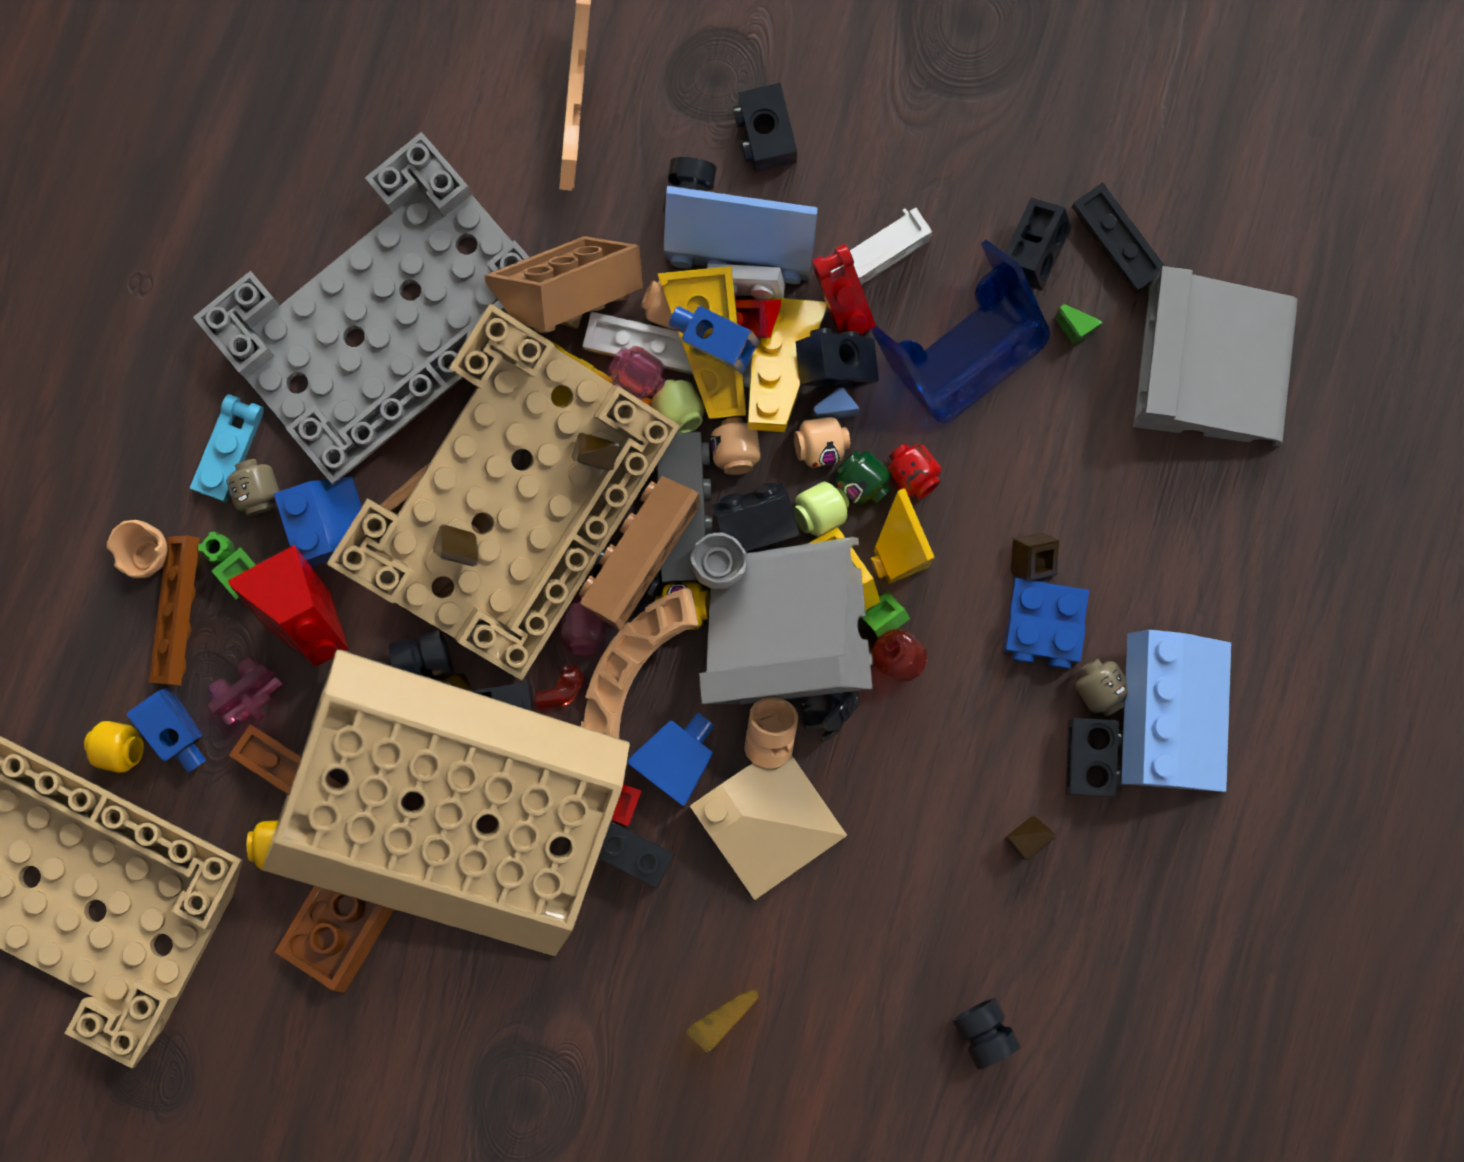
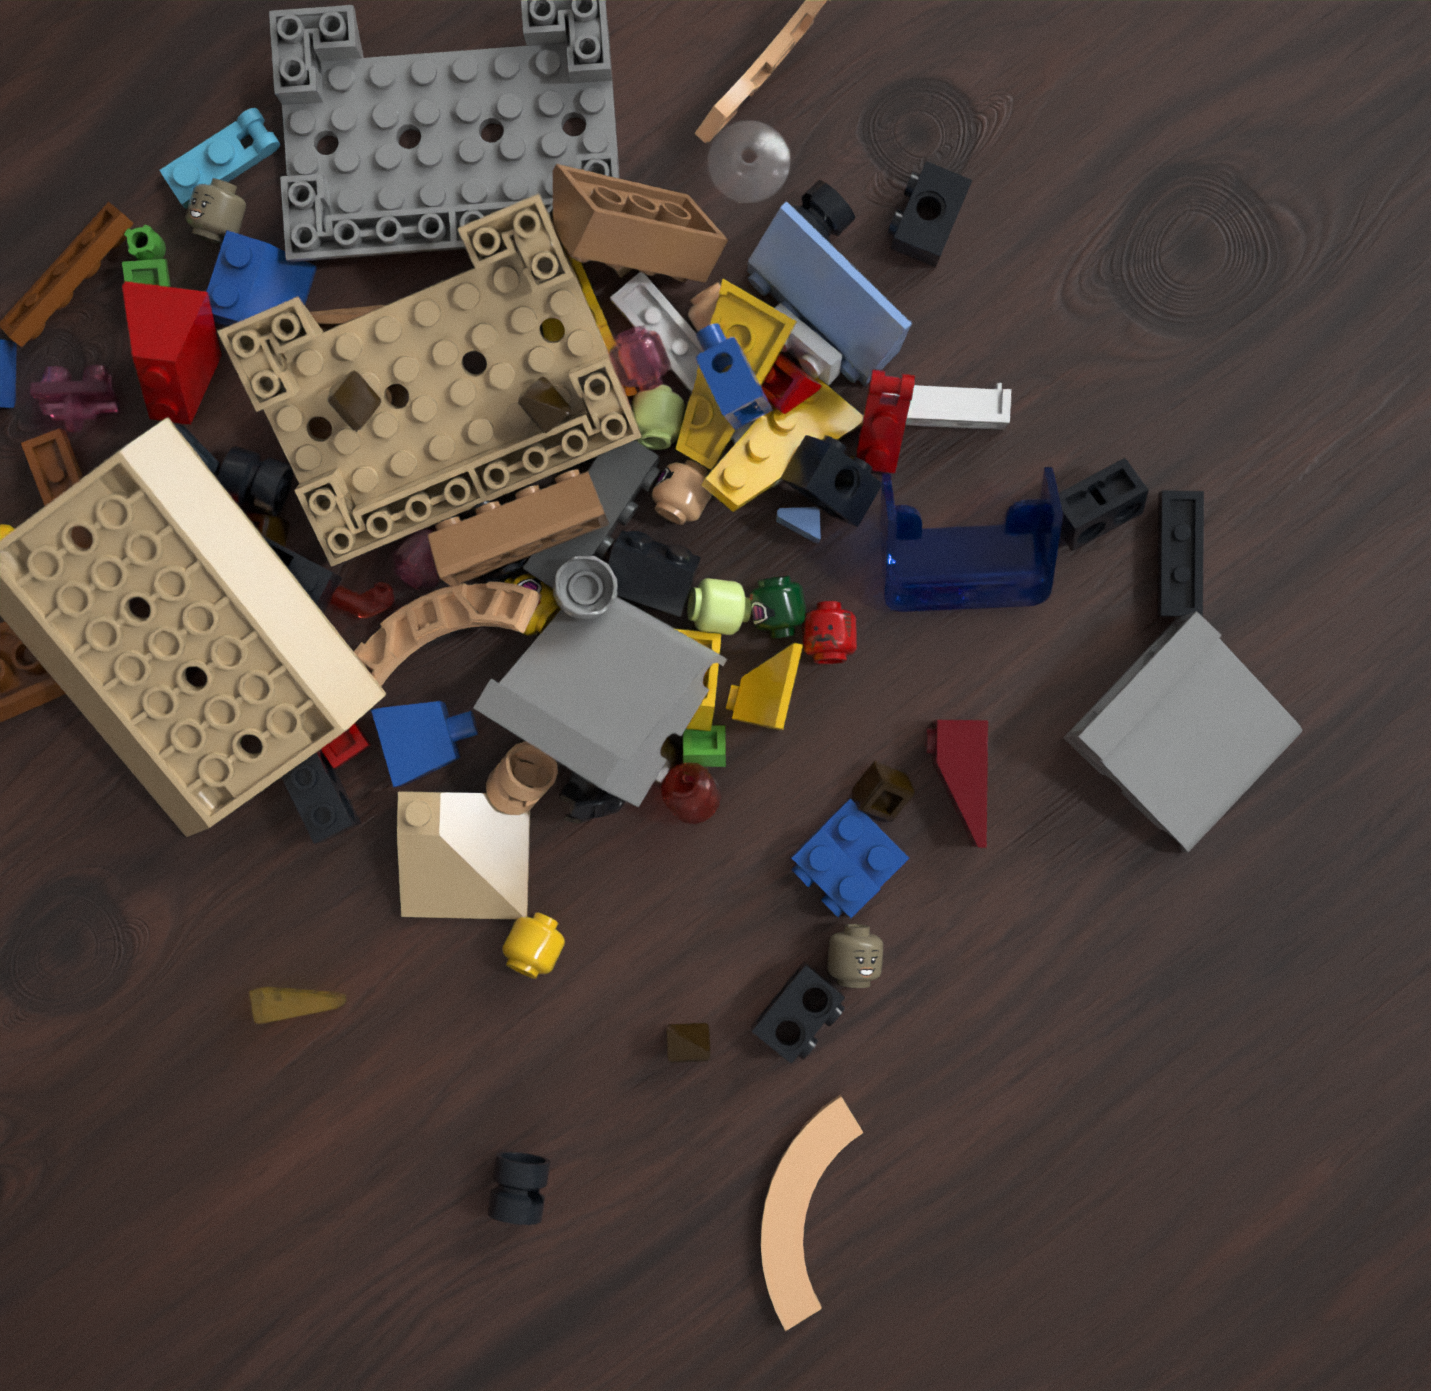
camera: 30 degrees right, 5 degrees up
(137, 548) = (71, 192): light nougat hair -> none
(615, 198) = (744, 180): none -> clear dish
(821, 442) = (764, 545): light nougat head -> none
(867, 849) = (533, 945): none -> yellow head
(1076, 323) = (1080, 606): bright green slope -> none
(1078, 497) = (961, 762): none -> dark red slope
(1176, 711) = (903, 1028): light blue slope -> none
(1188, 905) = (787, 1206): none -> light nougat tile

